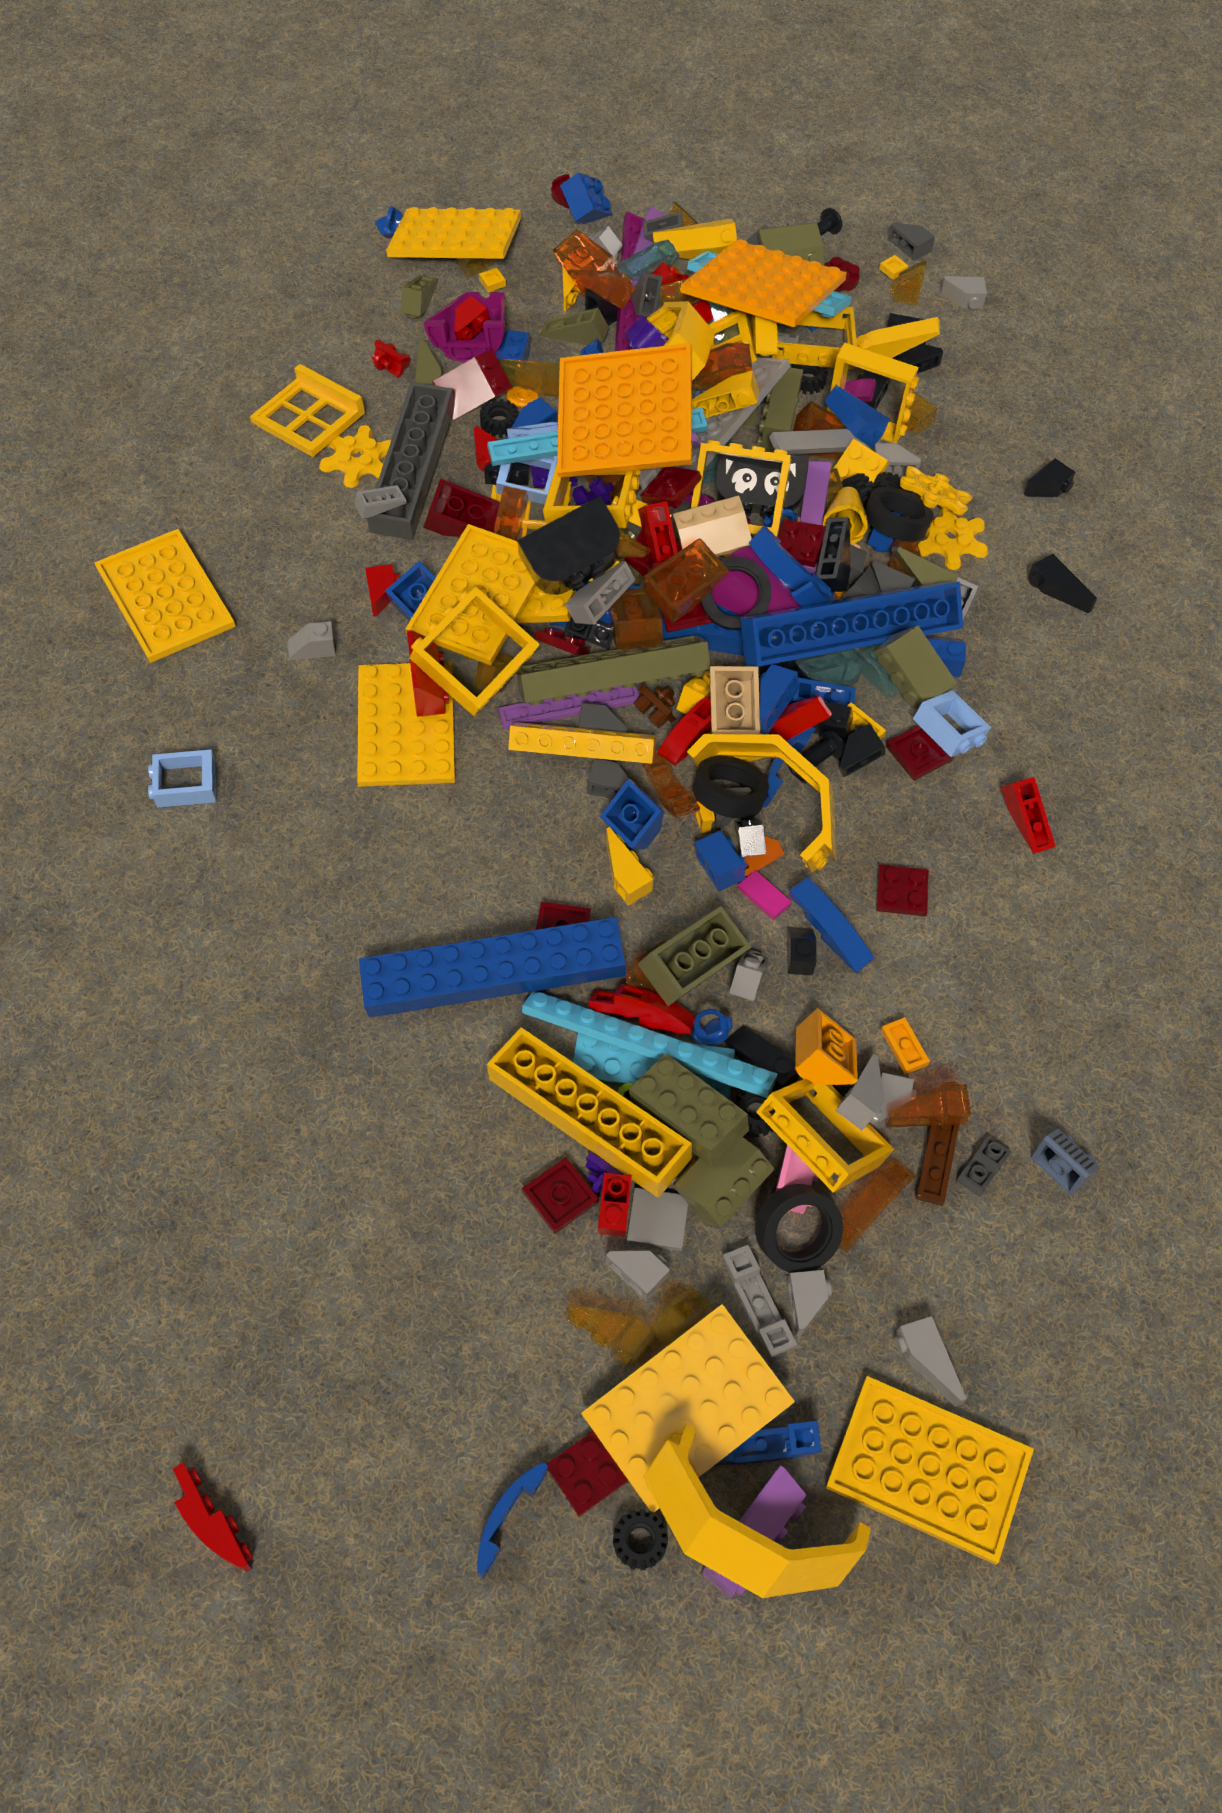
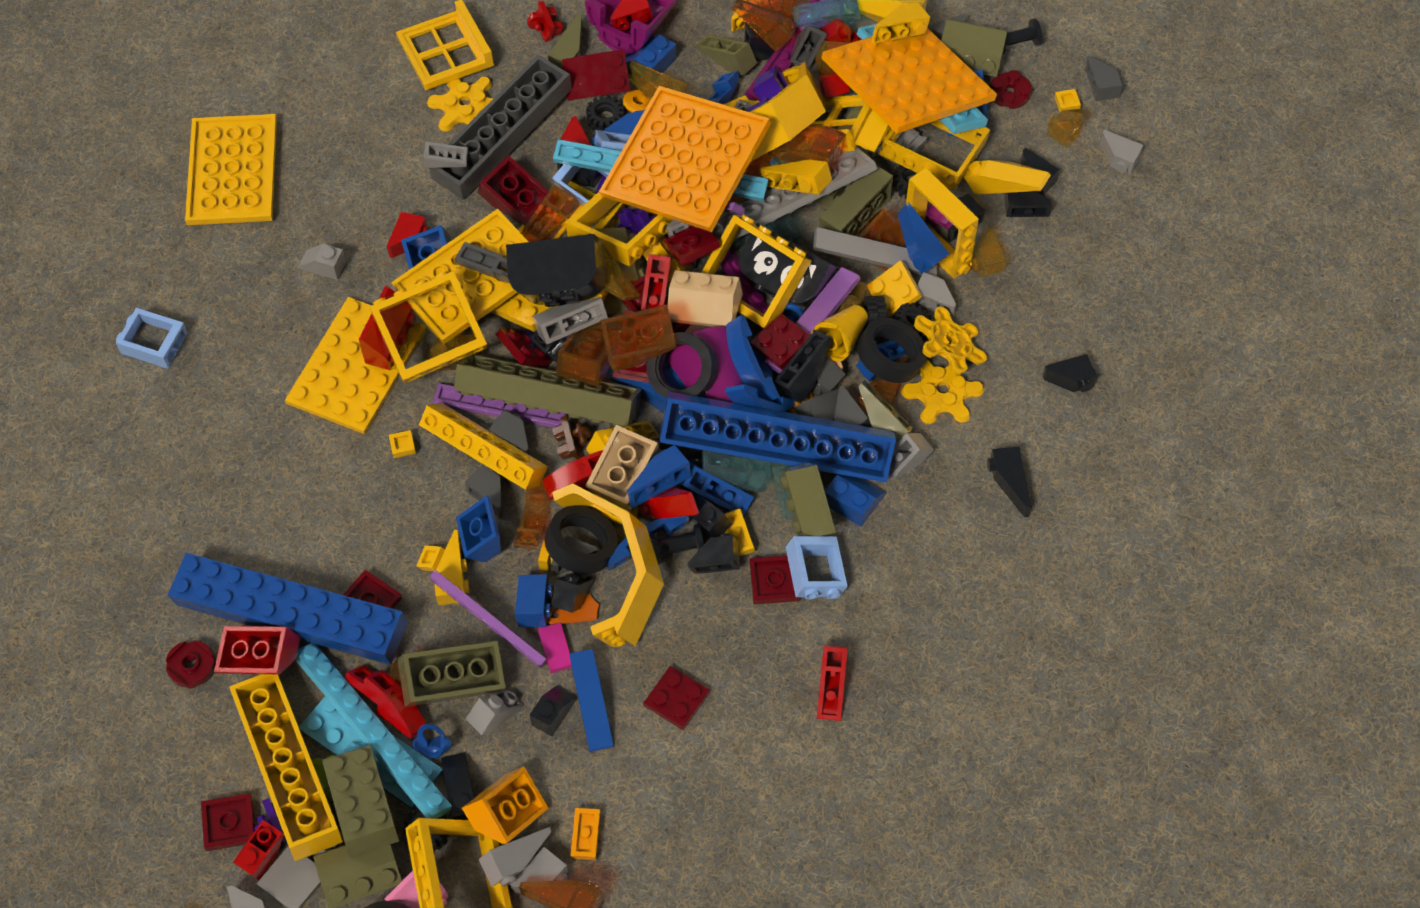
camera: 30 degrees right, 0 degrees up
(415, 1053) = (192, 676): none -> dark red plate
(489, 1019) = (256, 650): none -> red slope
(491, 573) = (482, 261): none -> dark grey hinge
(499, 775) = (402, 444): none -> yellow plate
(597, 865) = (430, 558): none -> yellow plate
(693, 892) = (488, 619): none -> medium lavender tile
(733, 239) = (901, 23): none -> yellow slope

